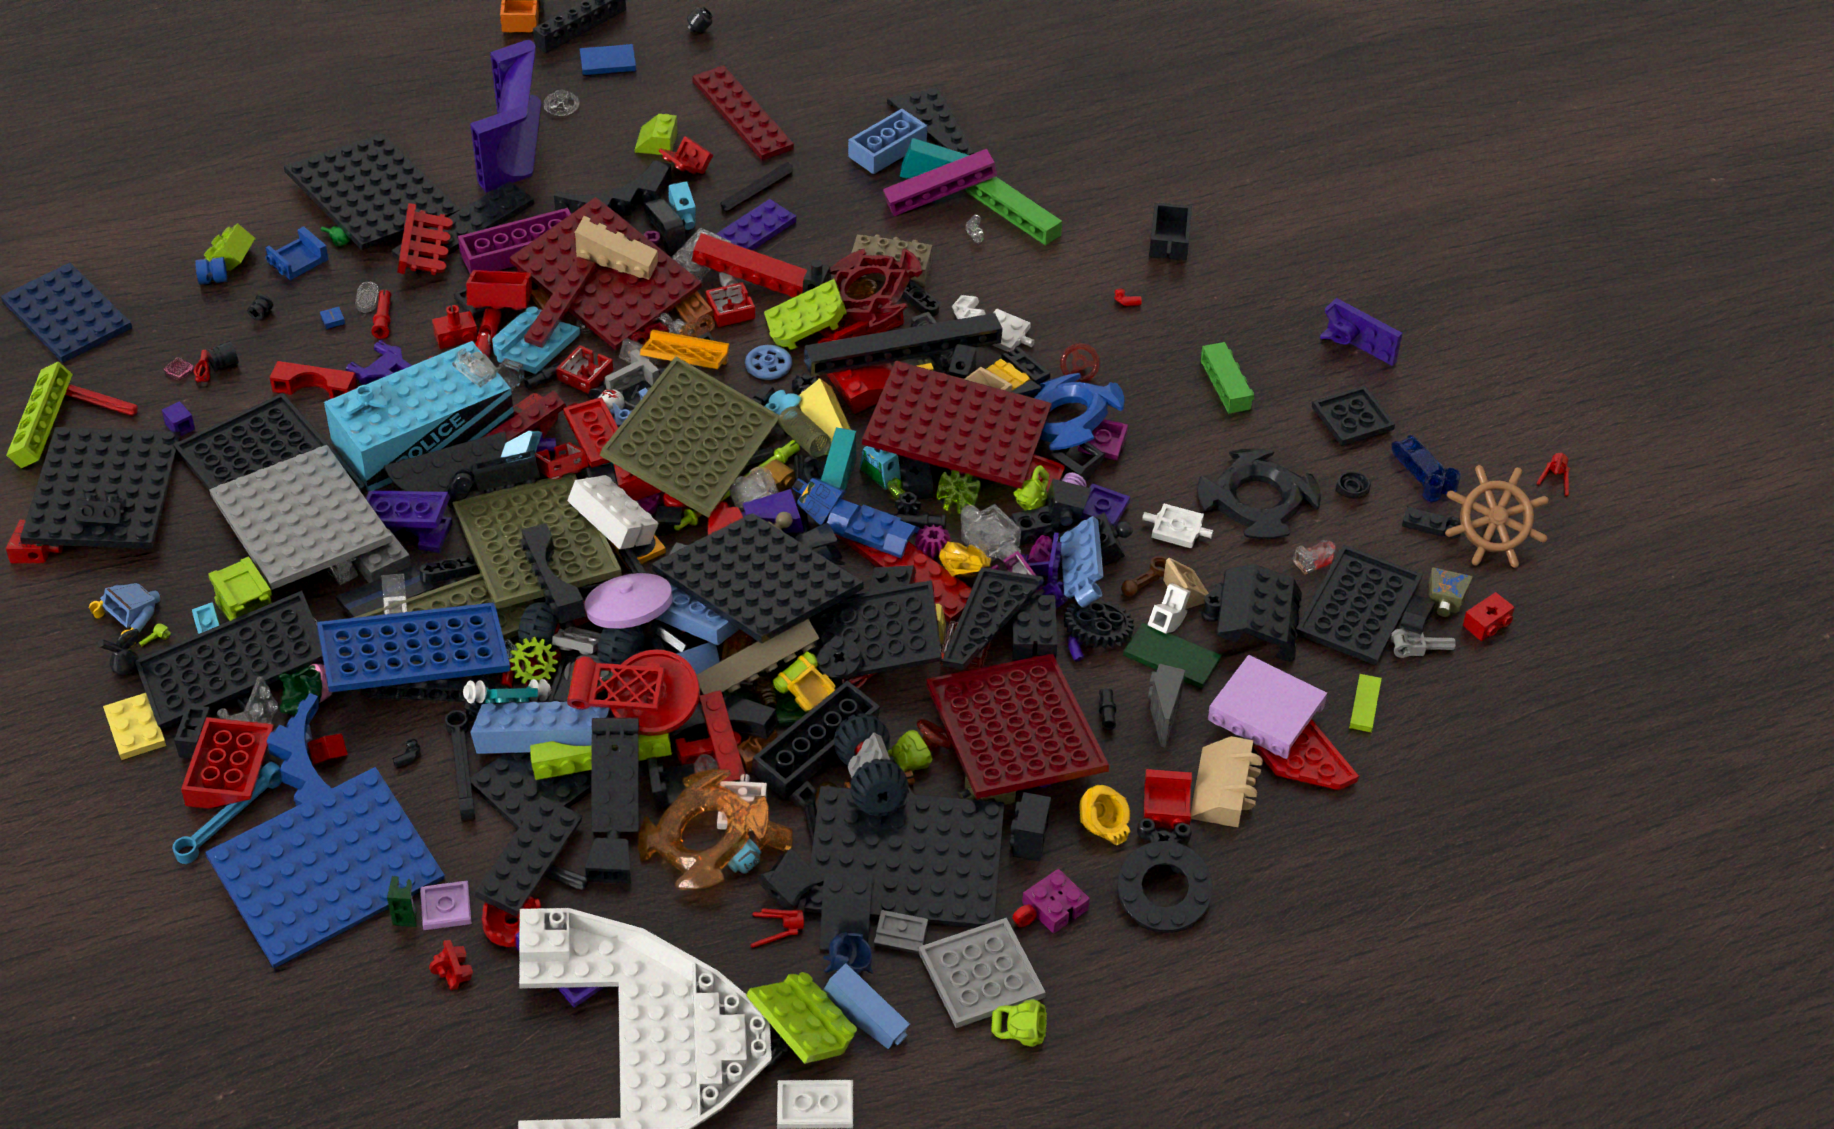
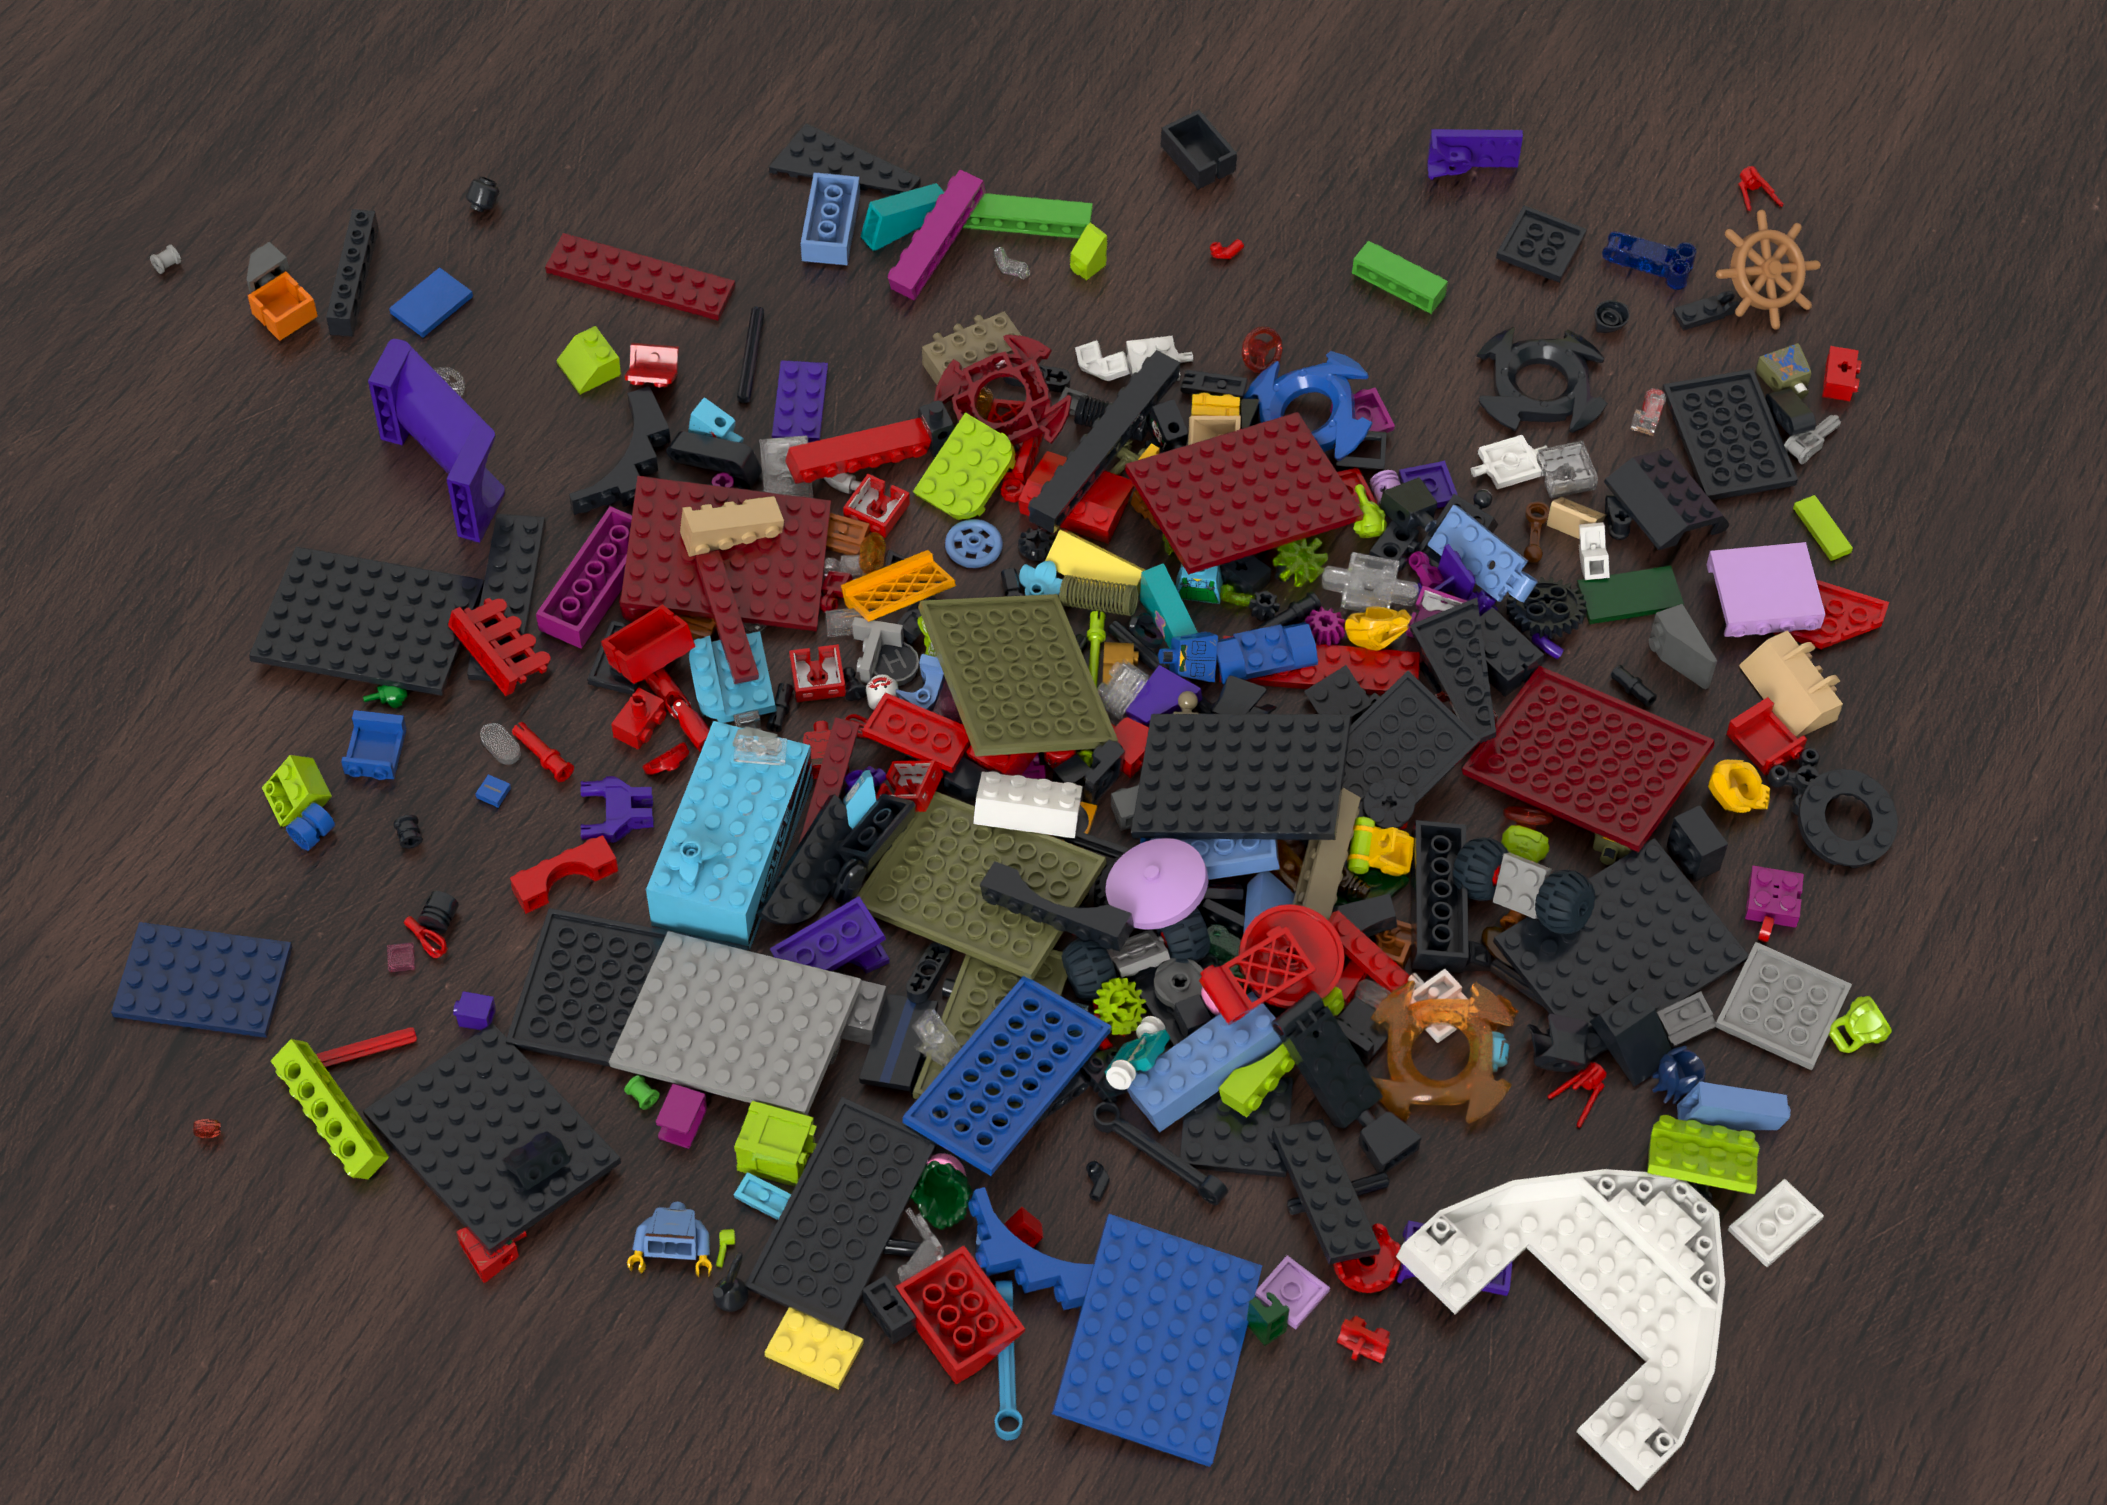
camera: 40 degrees left, 10 degrees up
(212, 522) = (641, 1092): none -> bright green bush
(215, 547) = (681, 1115): none -> magenta piece
(684, 527) = (1104, 771): none -> black plate
(1027, 247) = (1089, 252): none -> lime slope
(1212, 552) = (1576, 466): none -> clear piece

